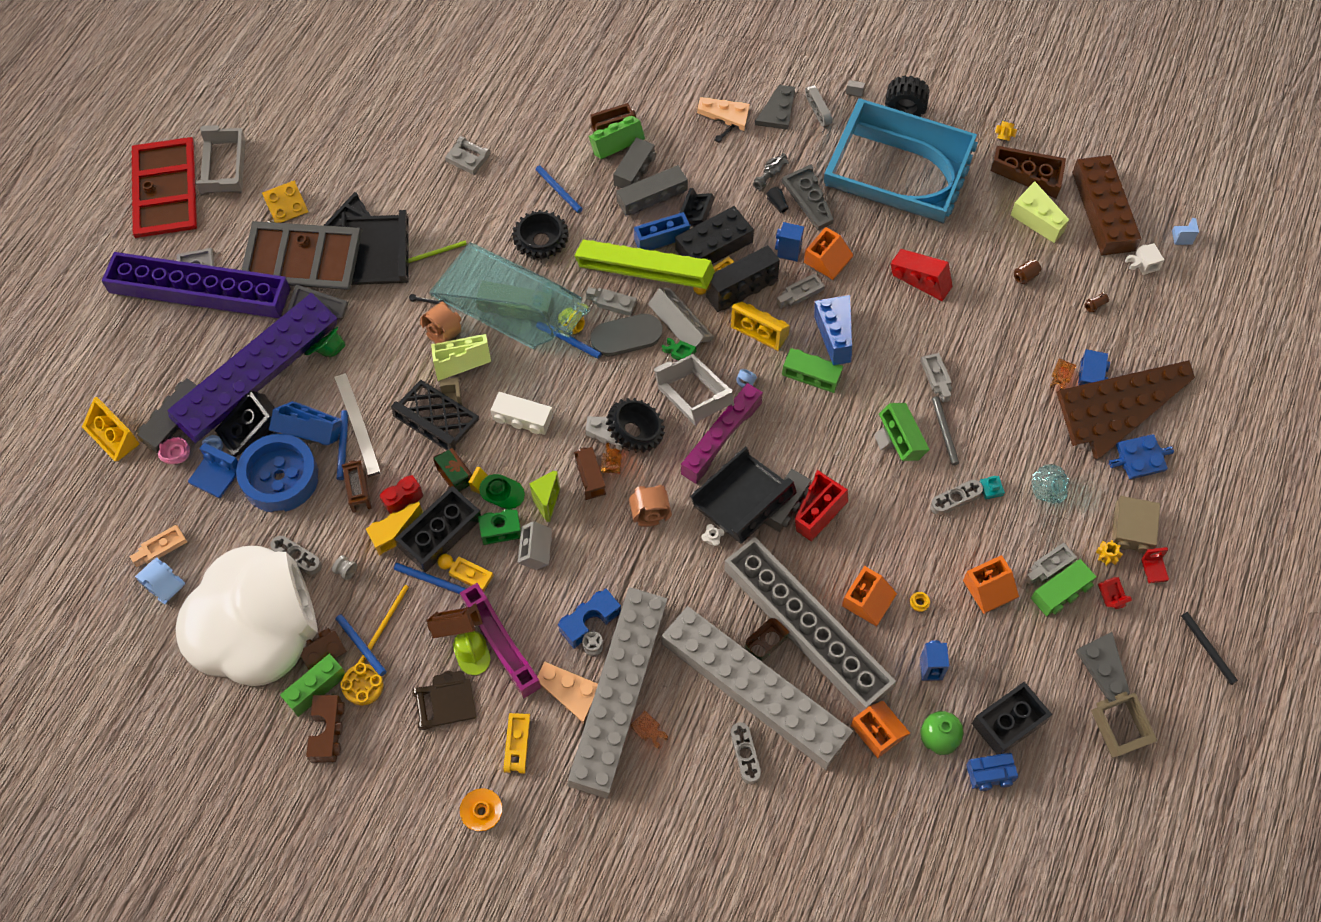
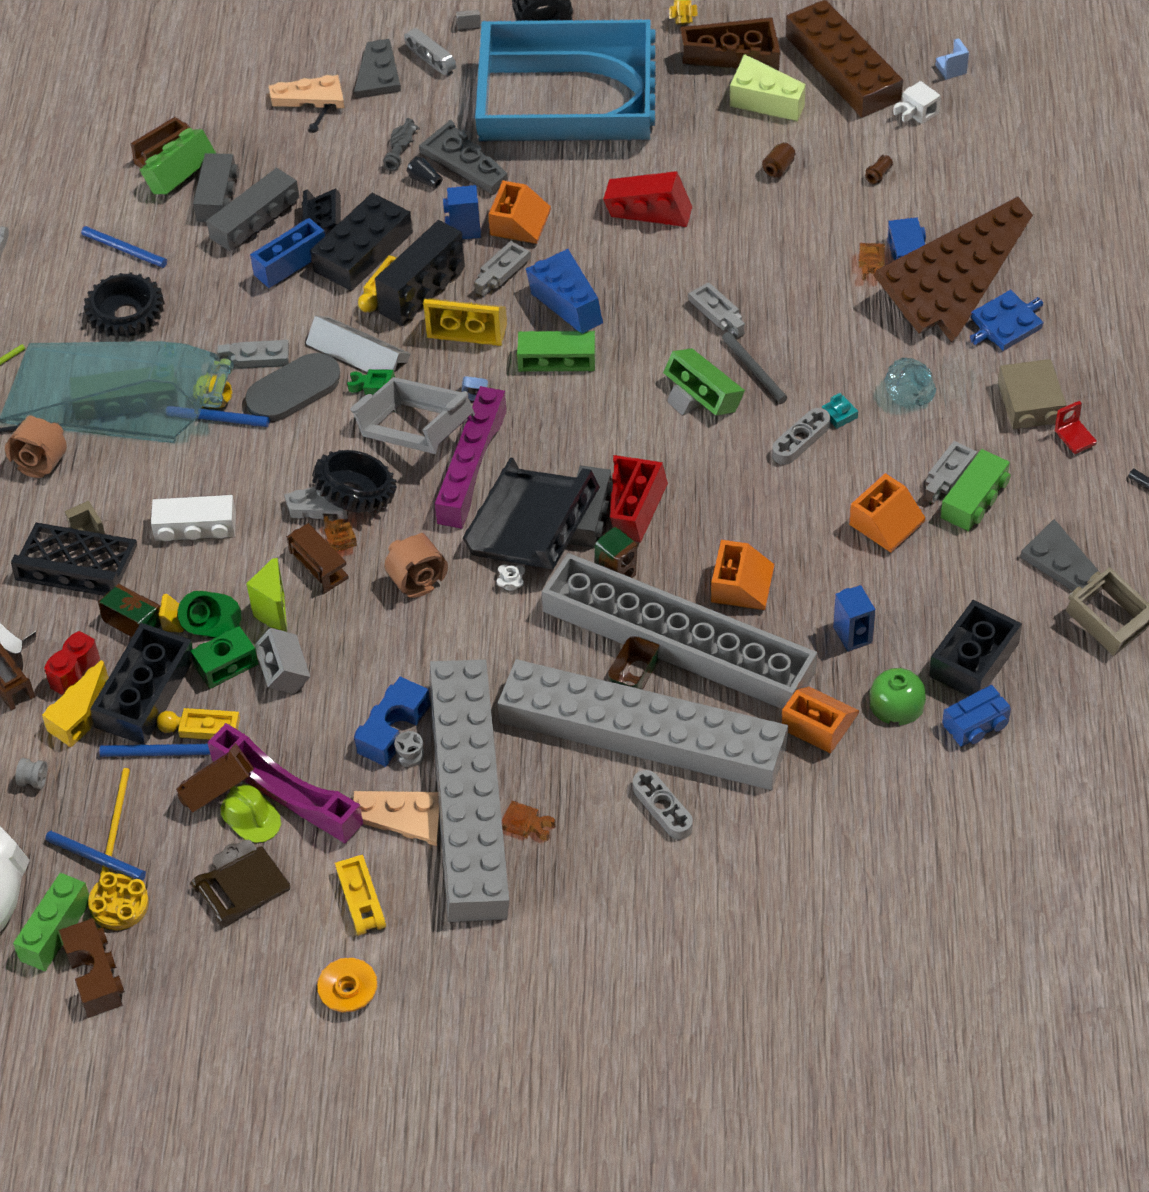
camera: 20 degrees left, 10 degrees down
(320, 647) = (41, 876): reddish brown bracket -> none
(460, 355) = (79, 474): yellowish green wedge -> none
(645, 263) = (283, 291): lime brick -> none
(786, 550) = (614, 549): none -> piece
(922, 597) = (806, 558): yellow plate -> none
(1109, 552) = (1013, 434): yellow gear -> none
(1113, 593) = (1037, 476): red bracket -> none

